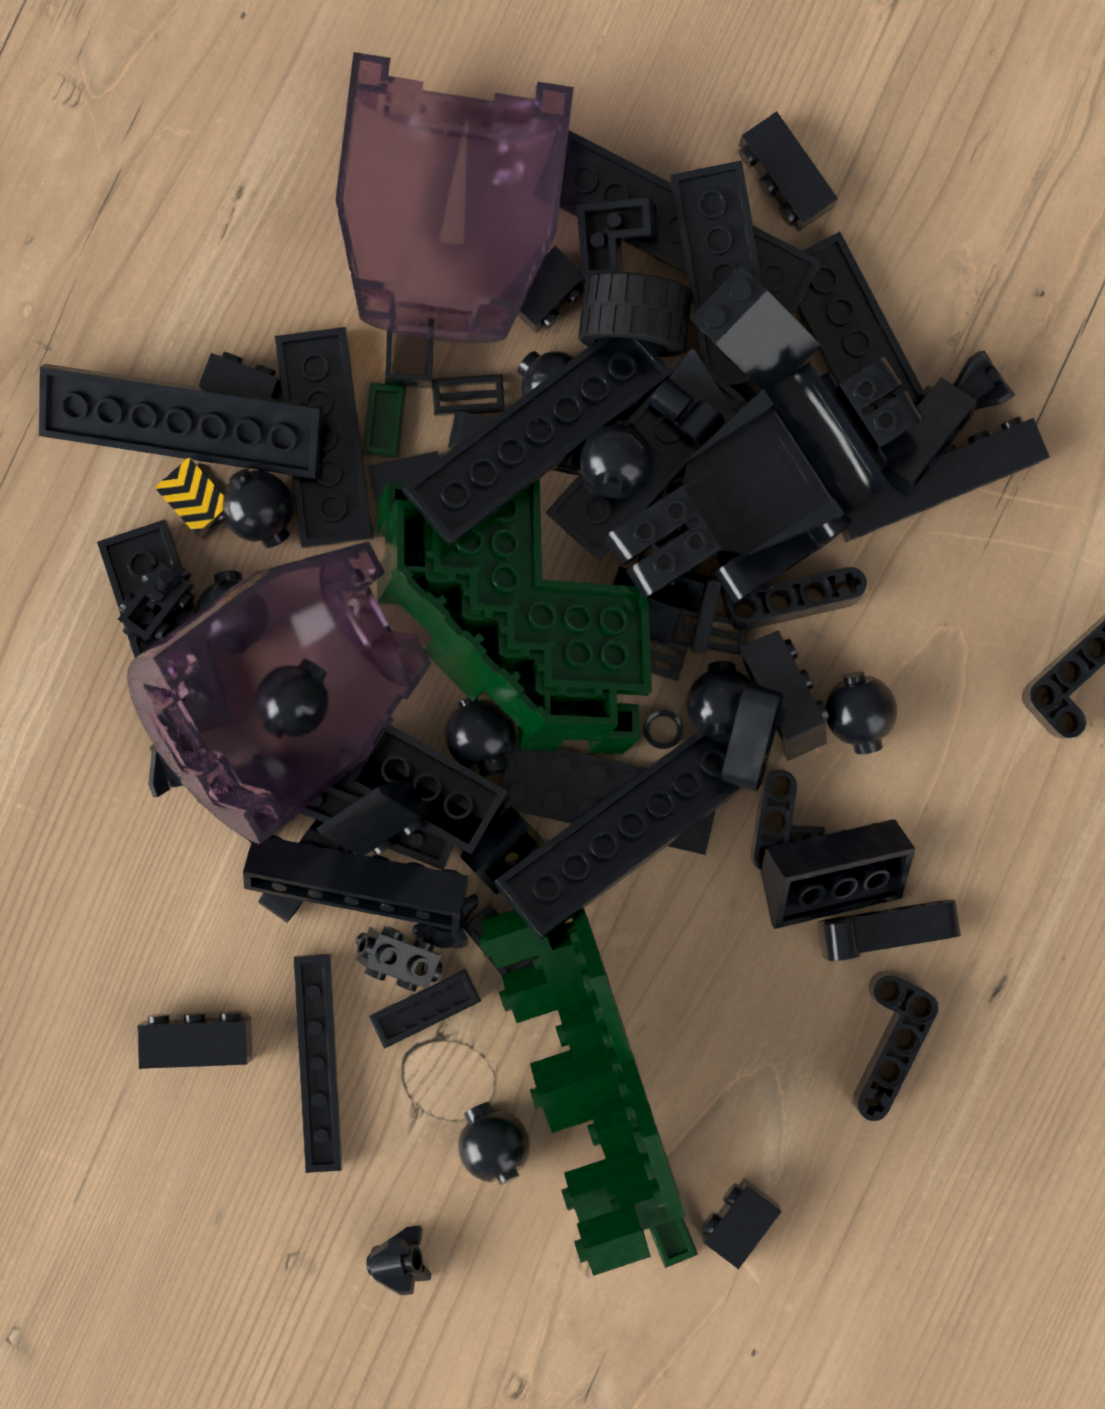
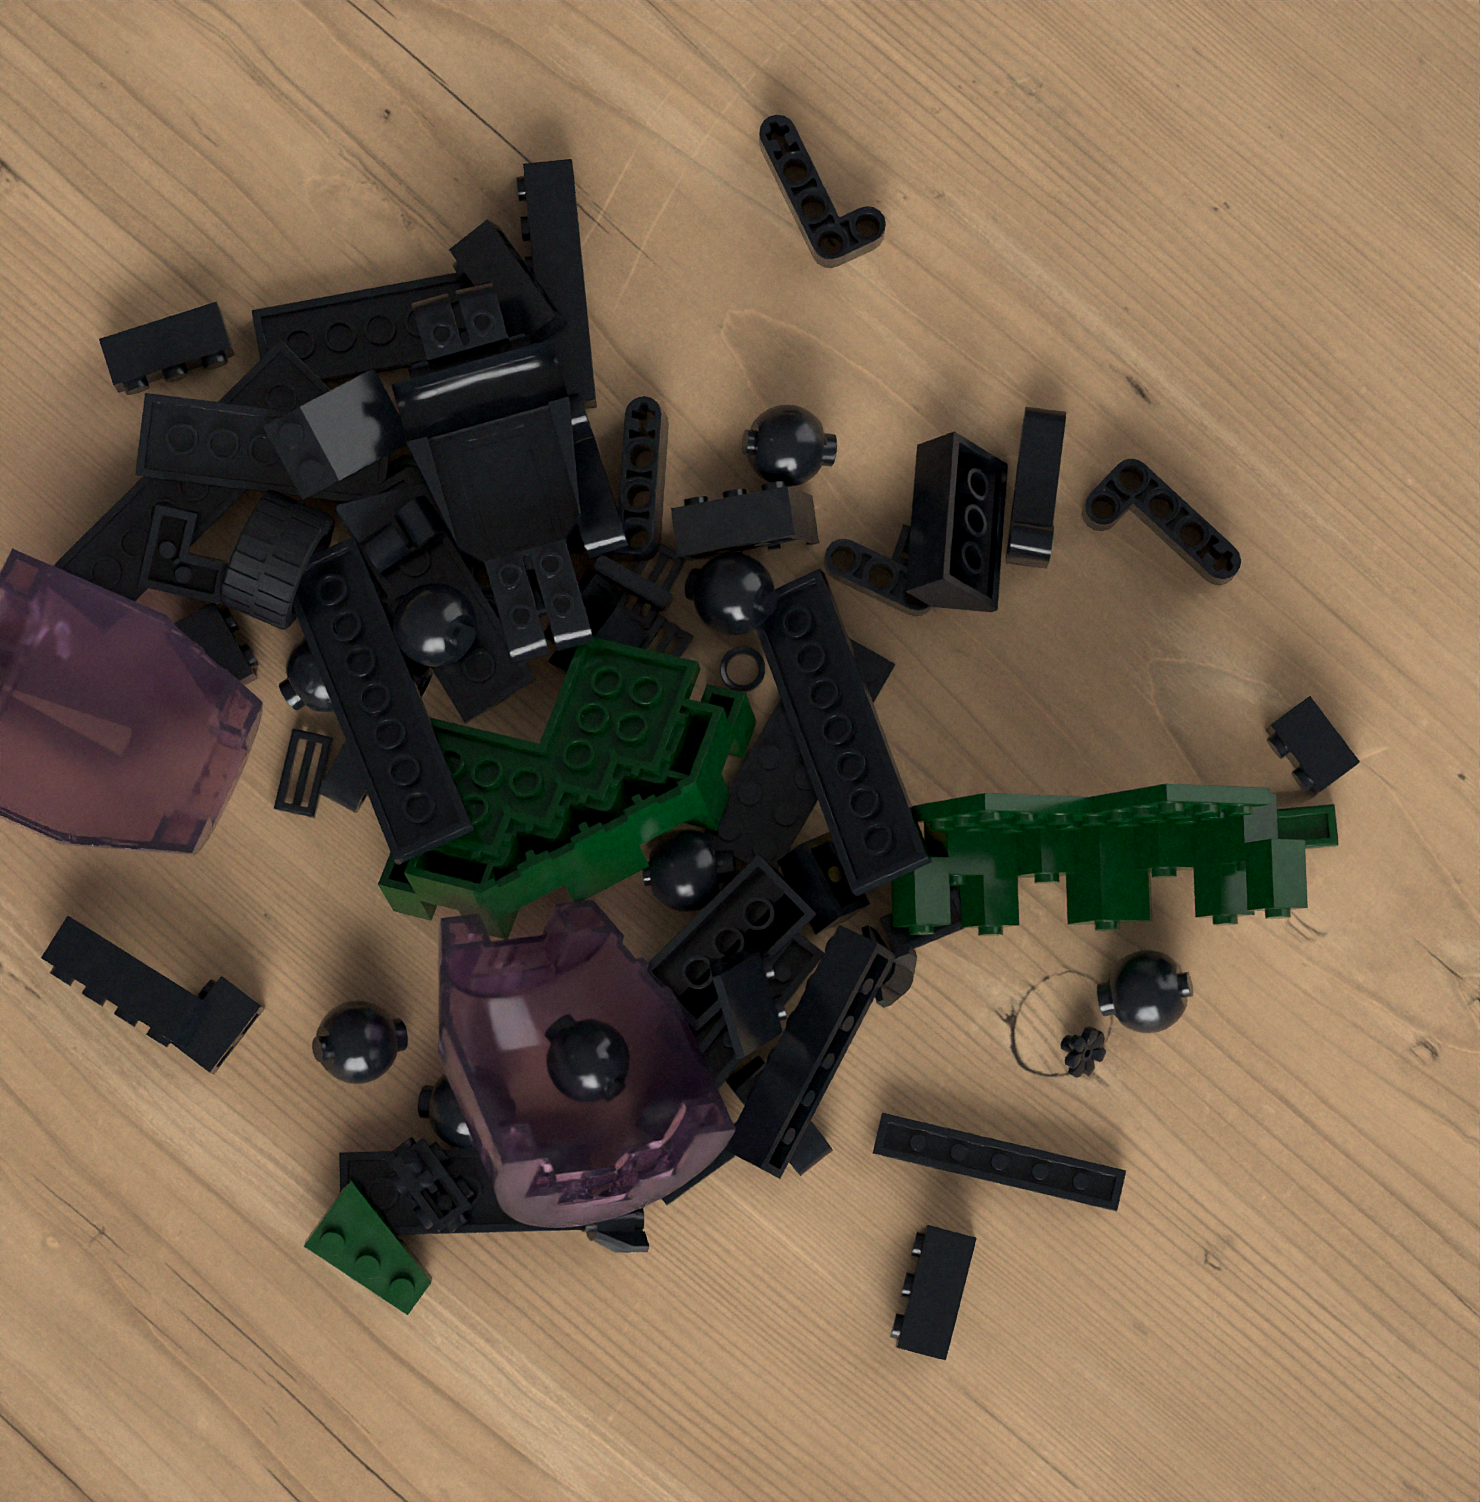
camera: 75 degrees left, 5 degrees down
(91, 564) = (367, 1250): none -> dark green wing
(180, 420) = (235, 1100): black plate -> none
(193, 497) = (326, 1110): piece -> none
(248, 301) = (125, 982): none -> black brick
(335, 503) = (302, 947): black plate -> none
(384, 420) = (302, 875): dark green tile -> none
(391, 955) = (900, 1044): black brick -> none
(399, 470) = (368, 864): black tile -> none
(399, 1262) = (1245, 1136): black brick -> none
(409, 380) = (241, 849): black piece -> none
(425, 1008) = (973, 1024): black plate -> none
(429, 1105) = (1083, 1051): none -> black plant
(752, 736) = (780, 569): black beam -> none
(983, 382) = (467, 205): black brick -> none

